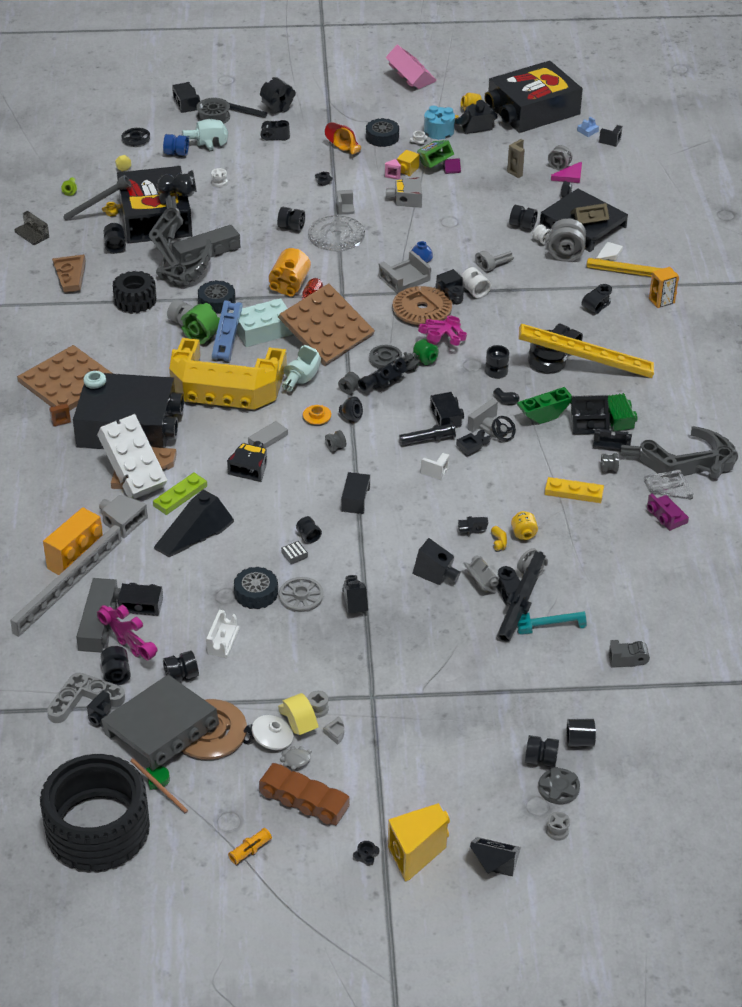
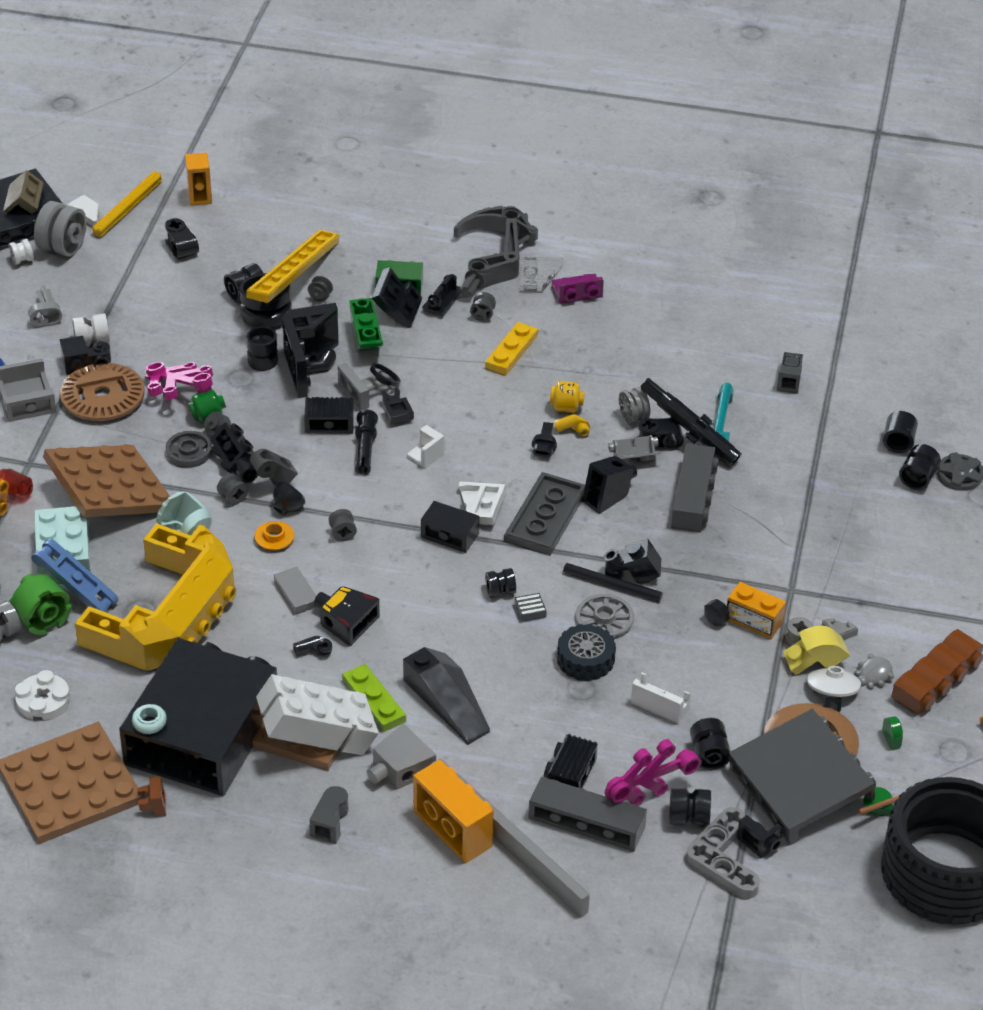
camera: 75 degrees left, 0 degrees up
(66, 492) = (326, 817): none -> dark grey leg
(134, 350) = (42, 684): none -> white plate
(218, 453) = (313, 644): none -> black arm
(228, 774) = (893, 732): none -> green tile
(322, 651) = (716, 612): none -> black tile
(330, 671) = (756, 610): none -> light orange brick
(337, 592) = (613, 582): none -> black bar
(369, 391) = (273, 466): none -> dark grey leg
(390, 505) = (483, 499): none -> white wing
(392, 541) = (545, 513): none -> dark grey tile
(456, 615) = (693, 488): none -> dark grey brick
(501, 373) = (305, 336): none -> black bracket
(583, 376) = (320, 288): none -> dark grey wheel

